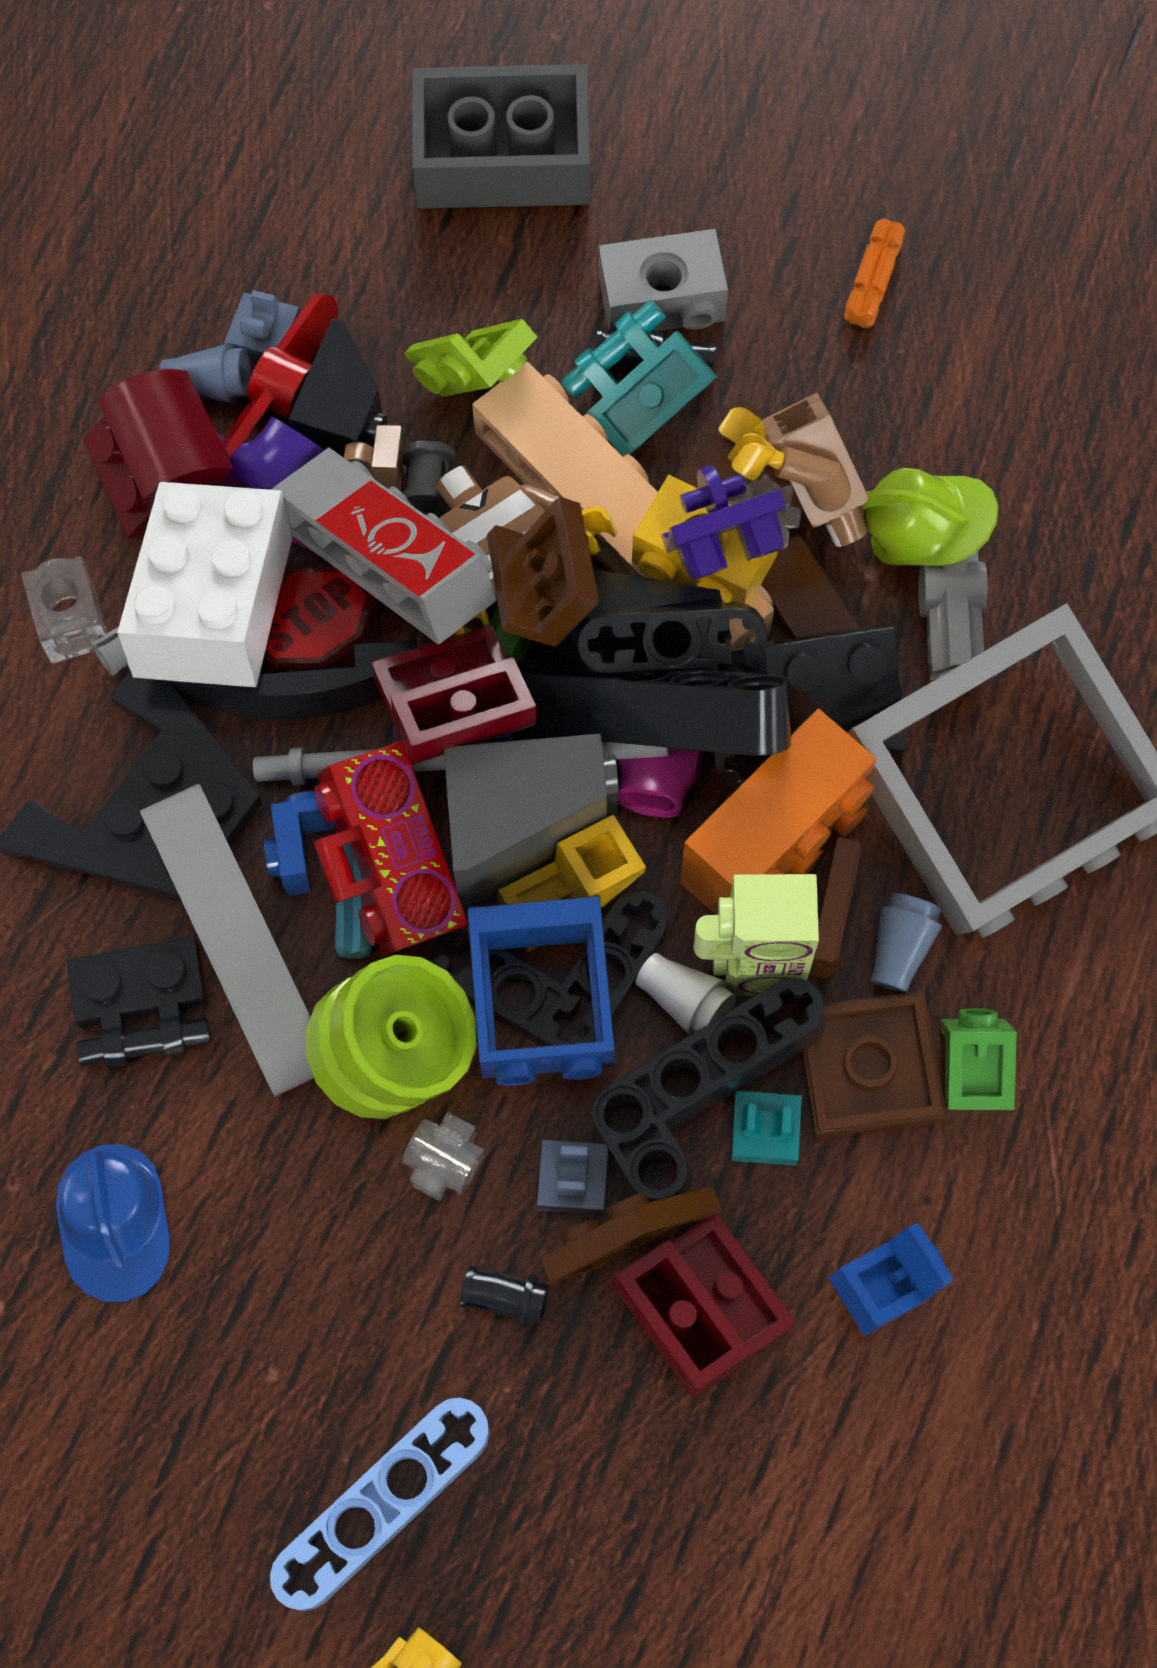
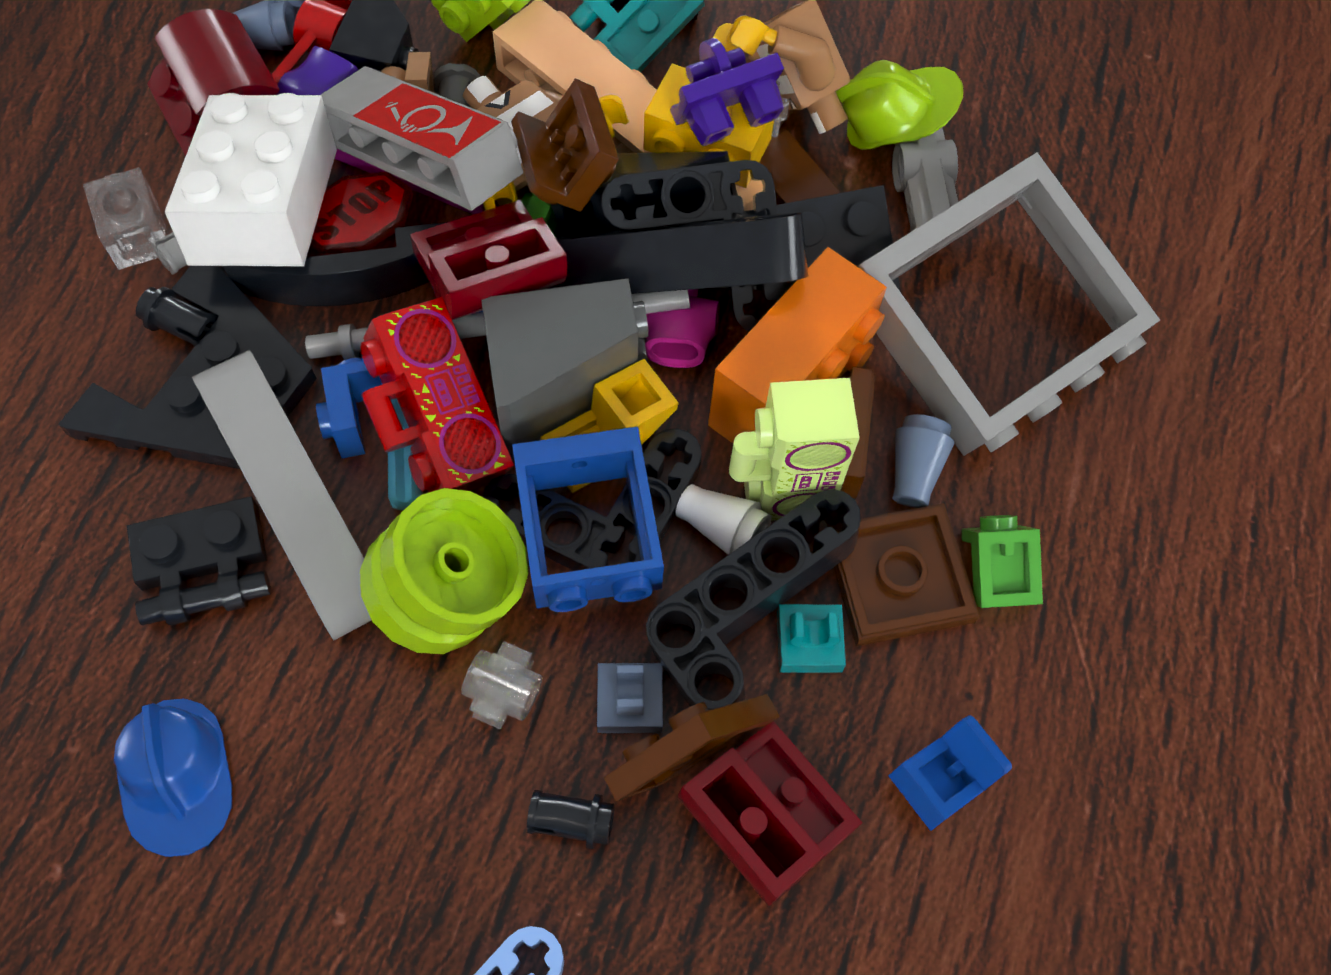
camera: 10 degrees left, 5 degrees down
(114, 726) = (164, 311): none -> black pin

